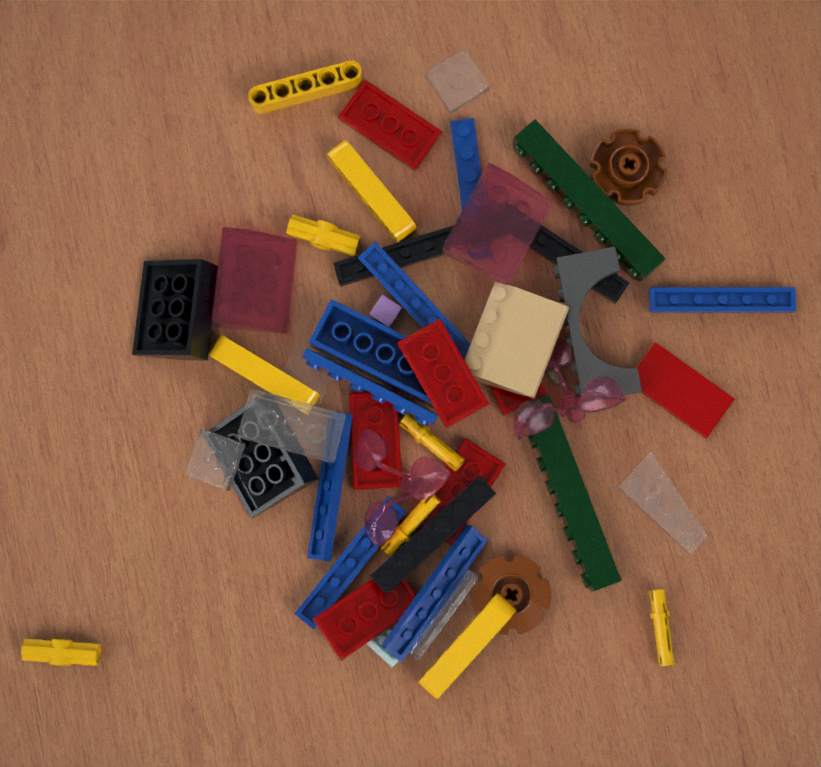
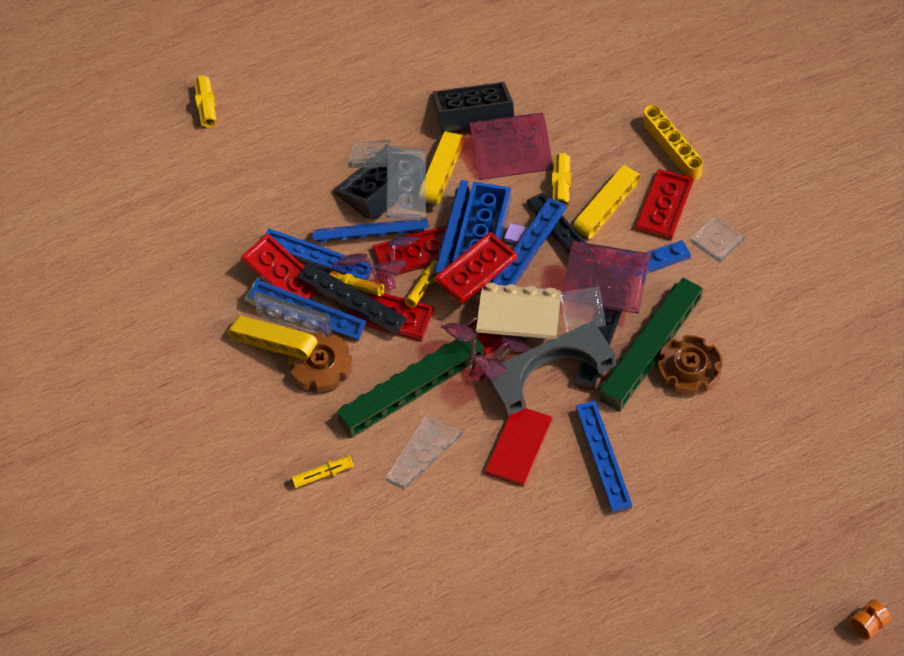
camera: 75 degrees right, 25 degrees down
(530, 264) = (582, 307): none -> clear tile

